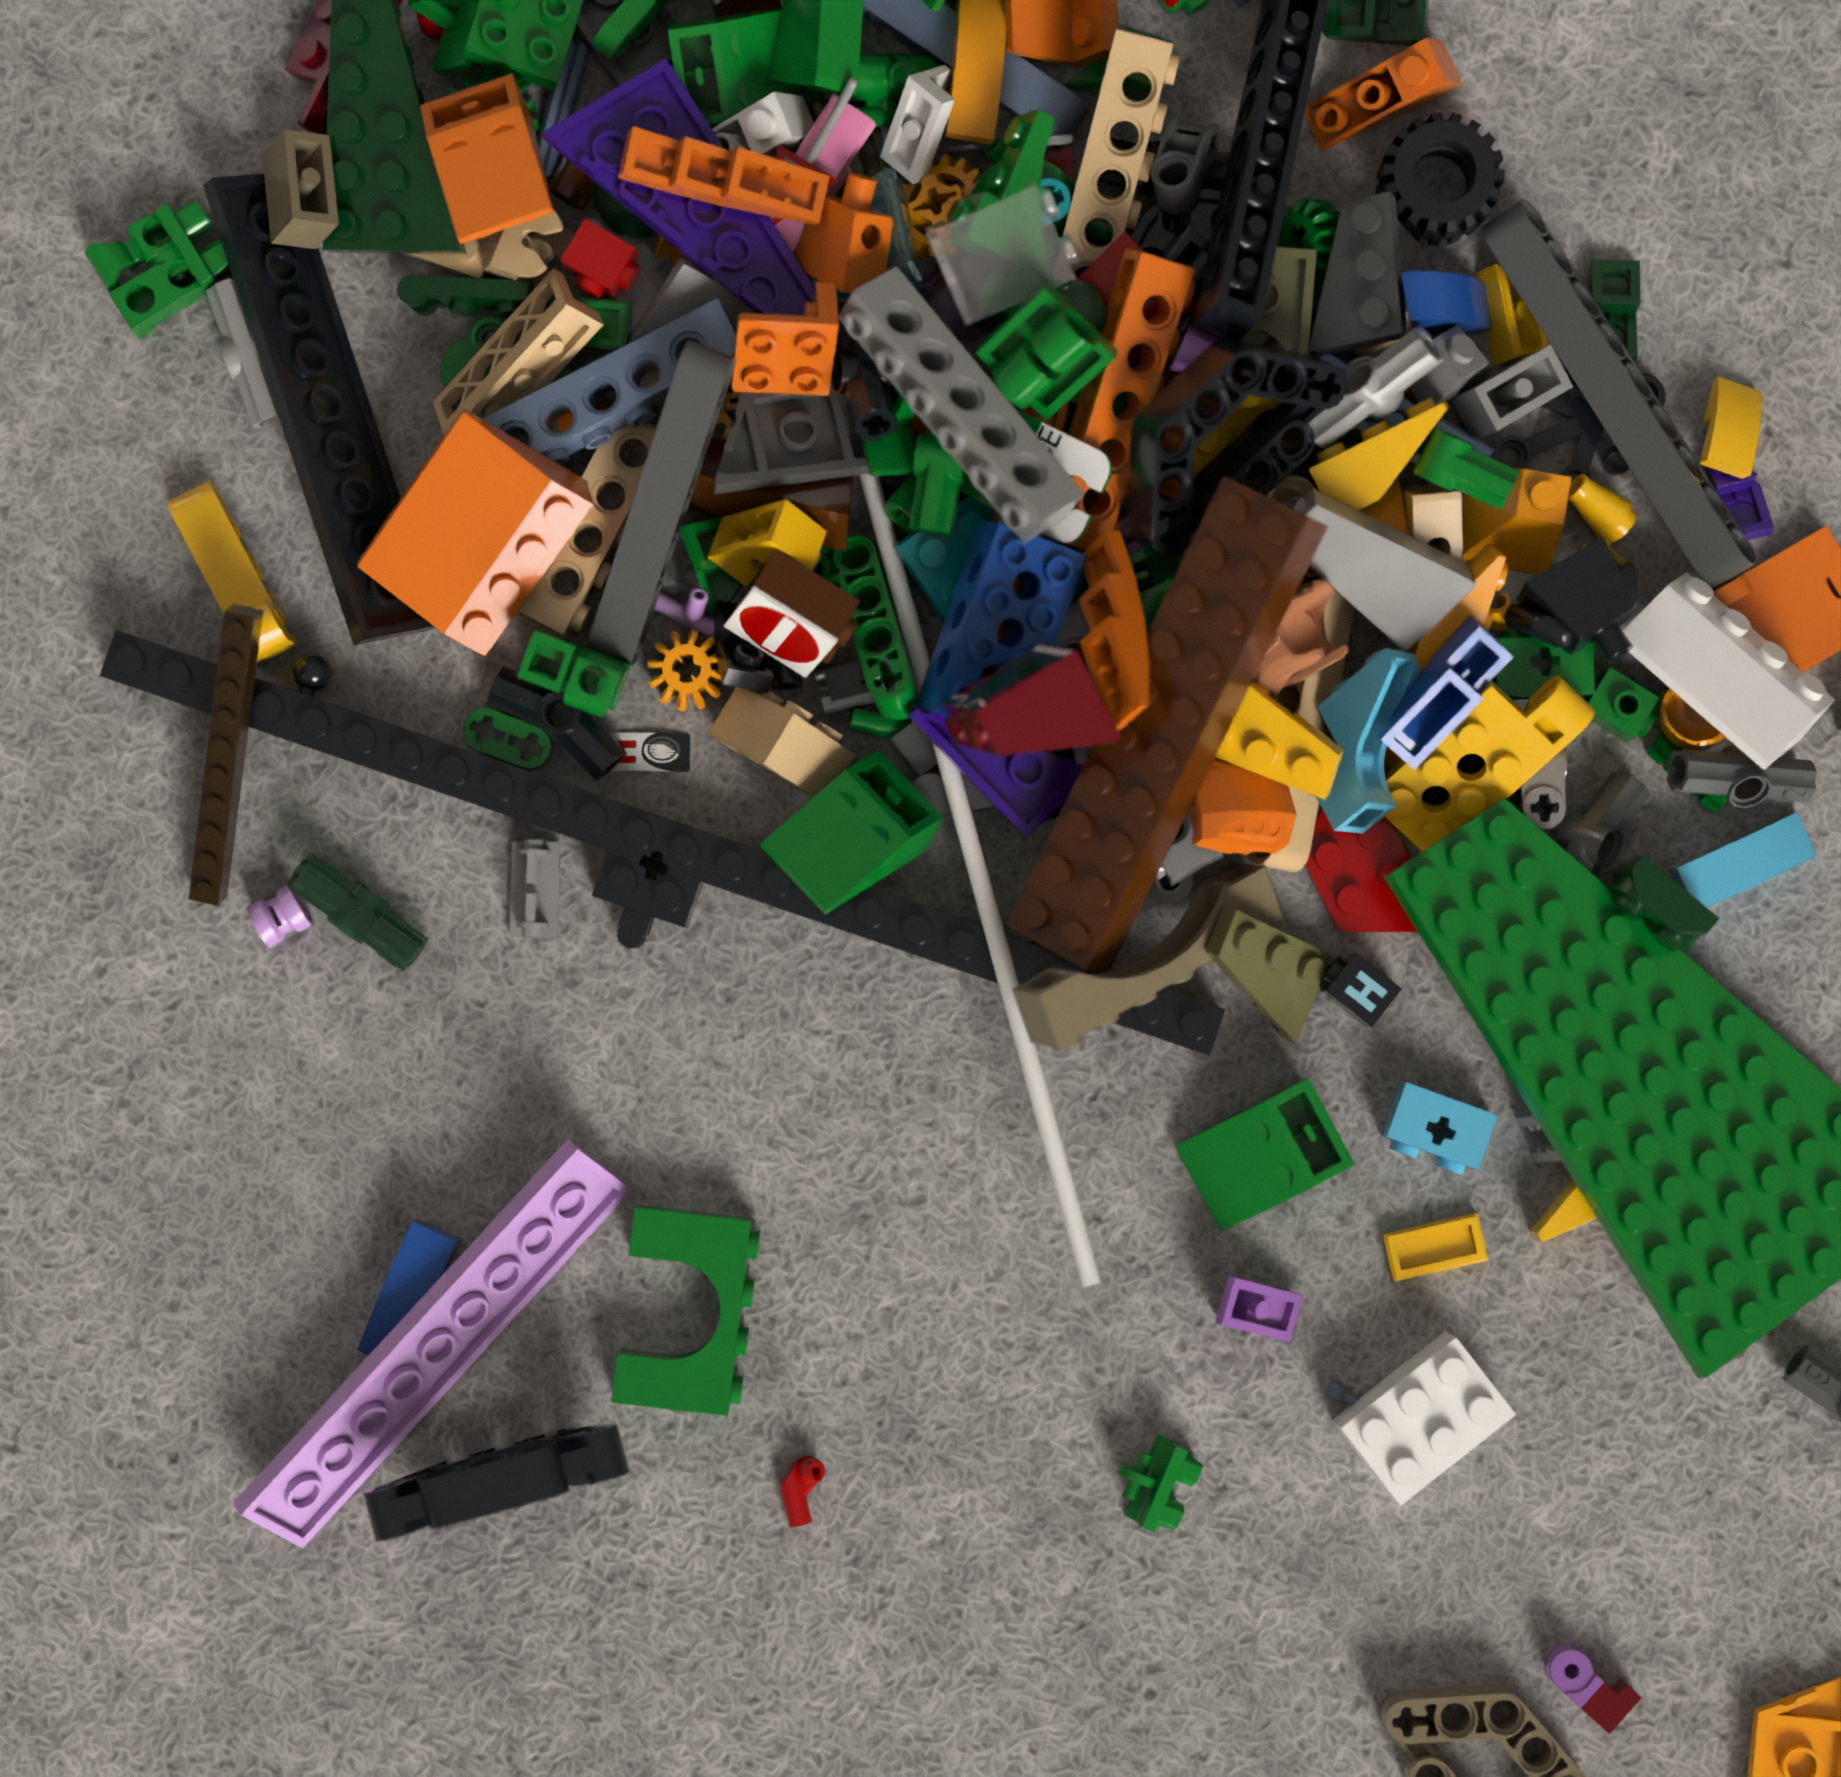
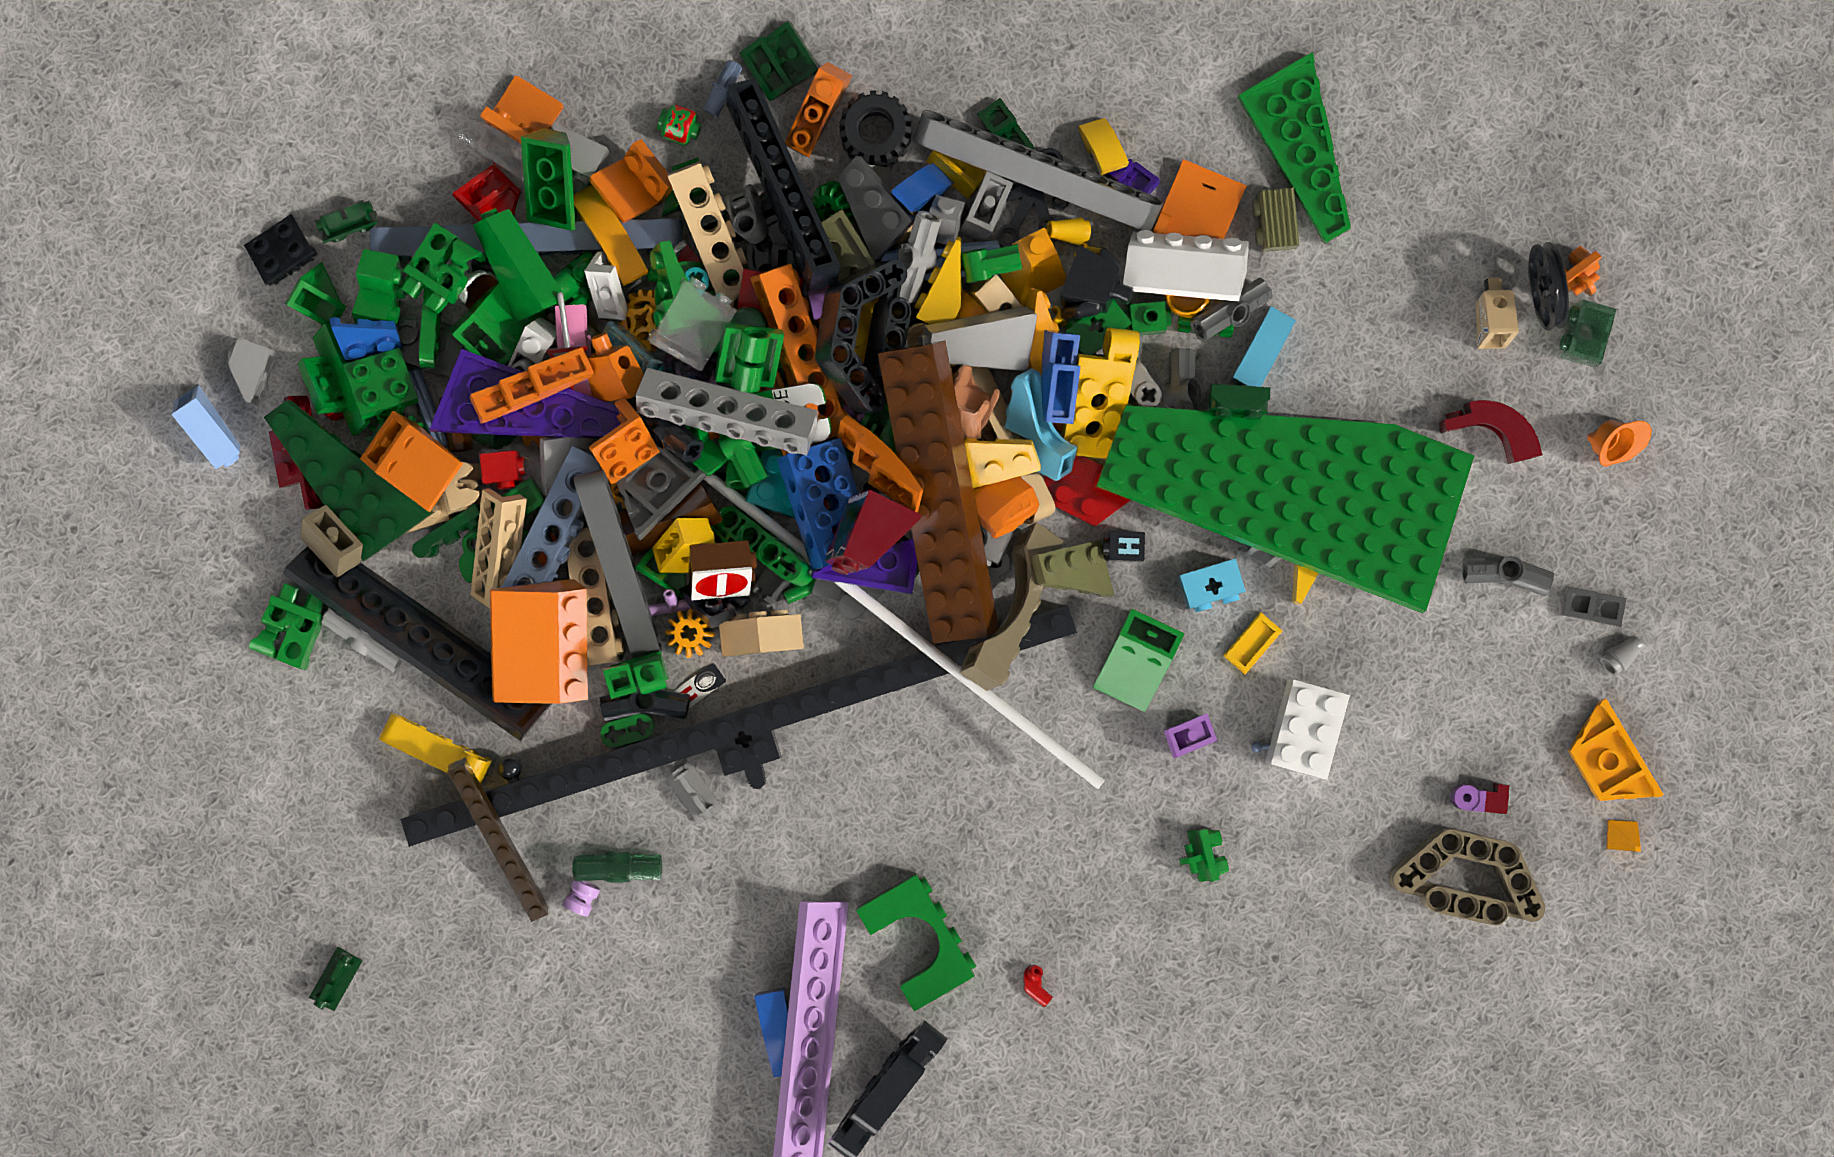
camera: 30 degrees left, 0 degrees up
(854, 832) = (827, 652): green slope -> none

